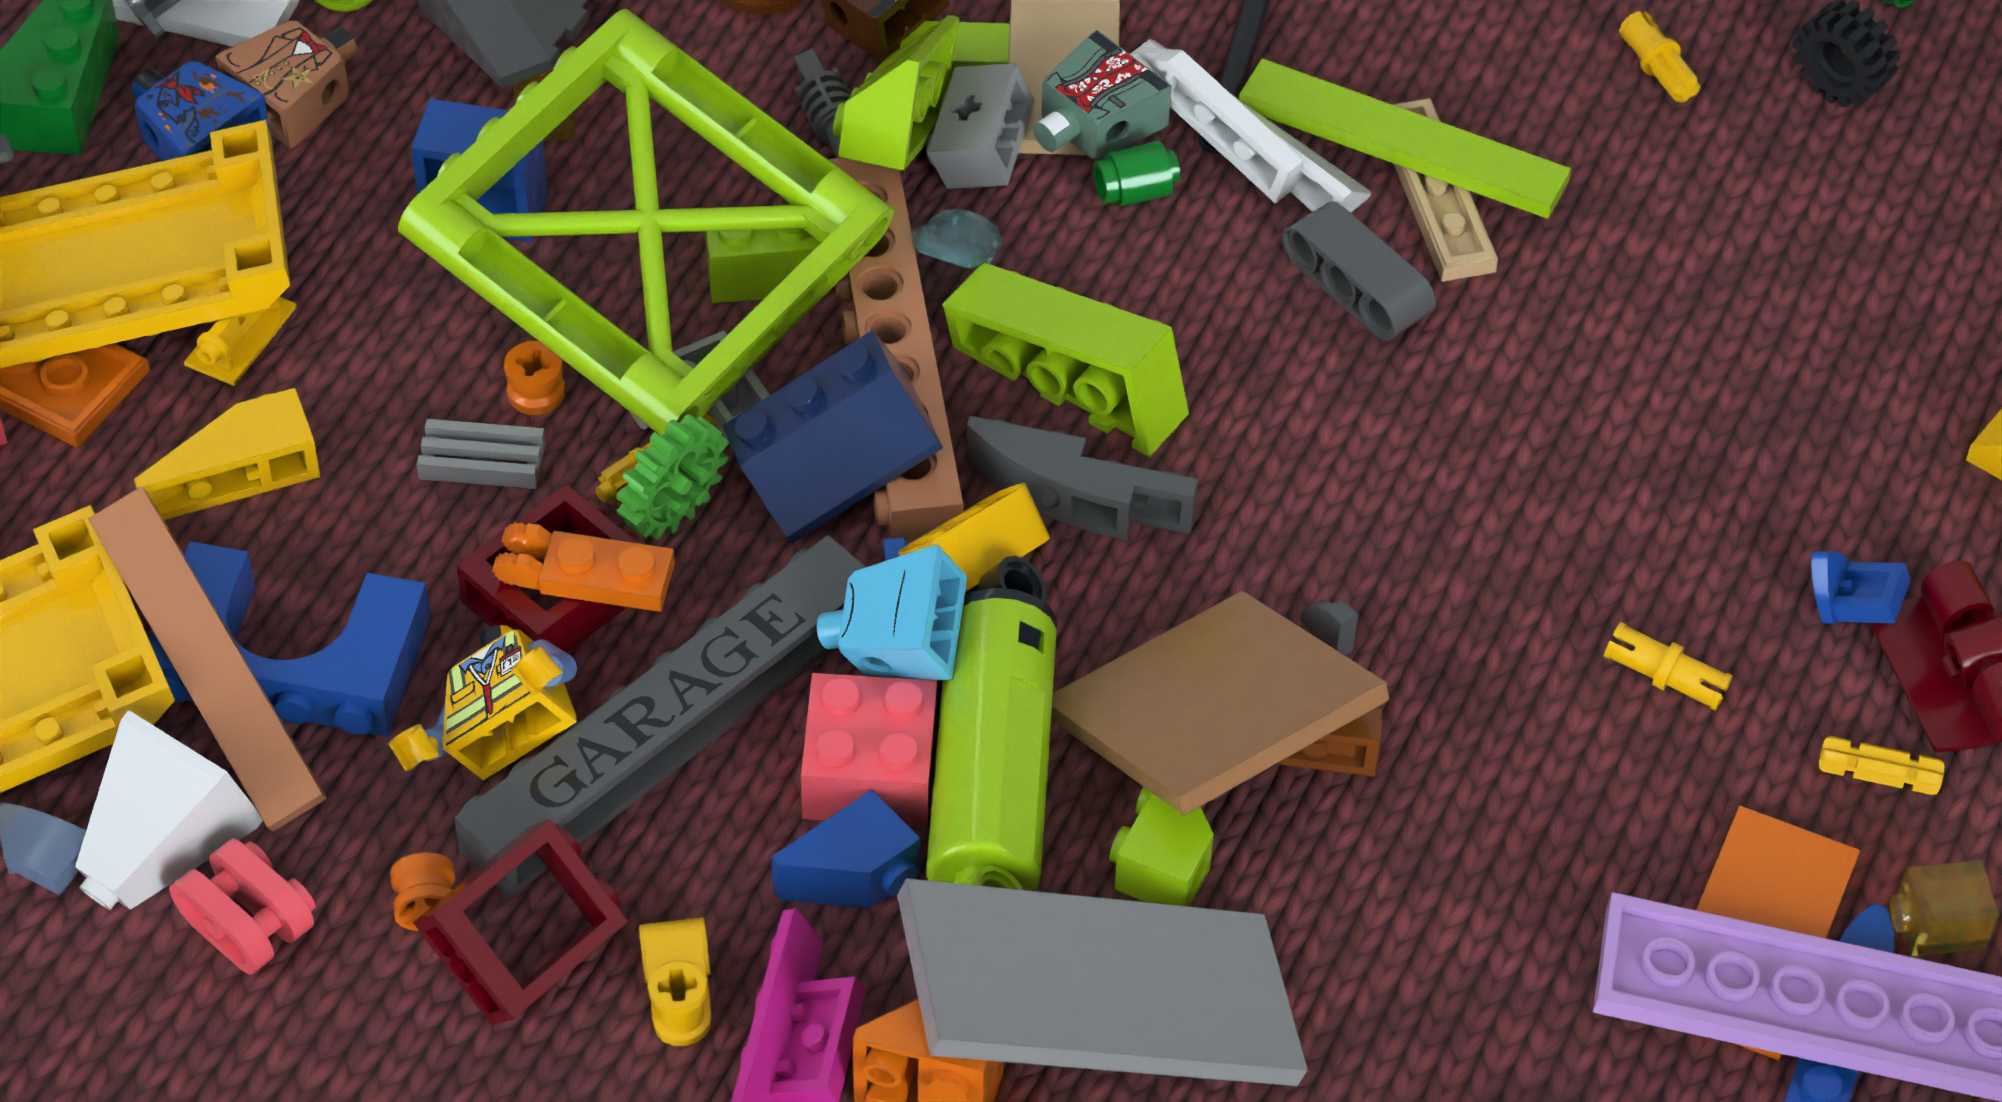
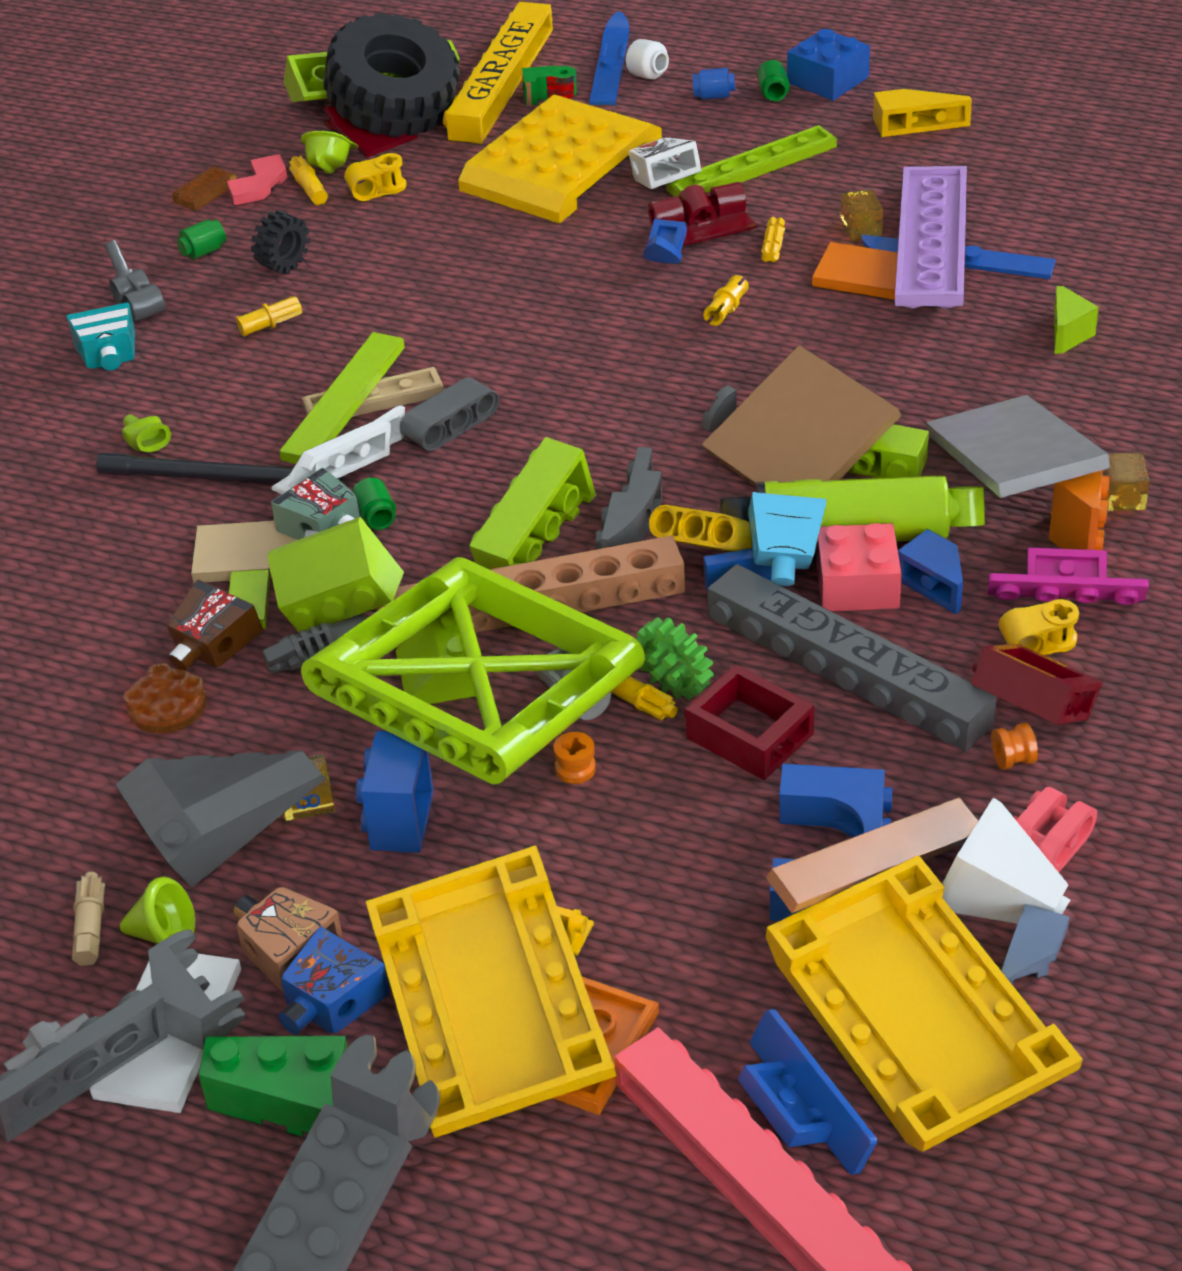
camera: 90 degrees left, 10 degrees down
(236, 456) = (670, 899): yellow slope -> none
(482, 444) = (640, 758): light grey tile -> none
(496, 705) = (869, 713): torso -> none
(585, 567) = (762, 677): orange hinge -> none
(832, 436) = (628, 579): dark blue slope -> none
(959, 238) = (436, 559): clear light blue piece -> none

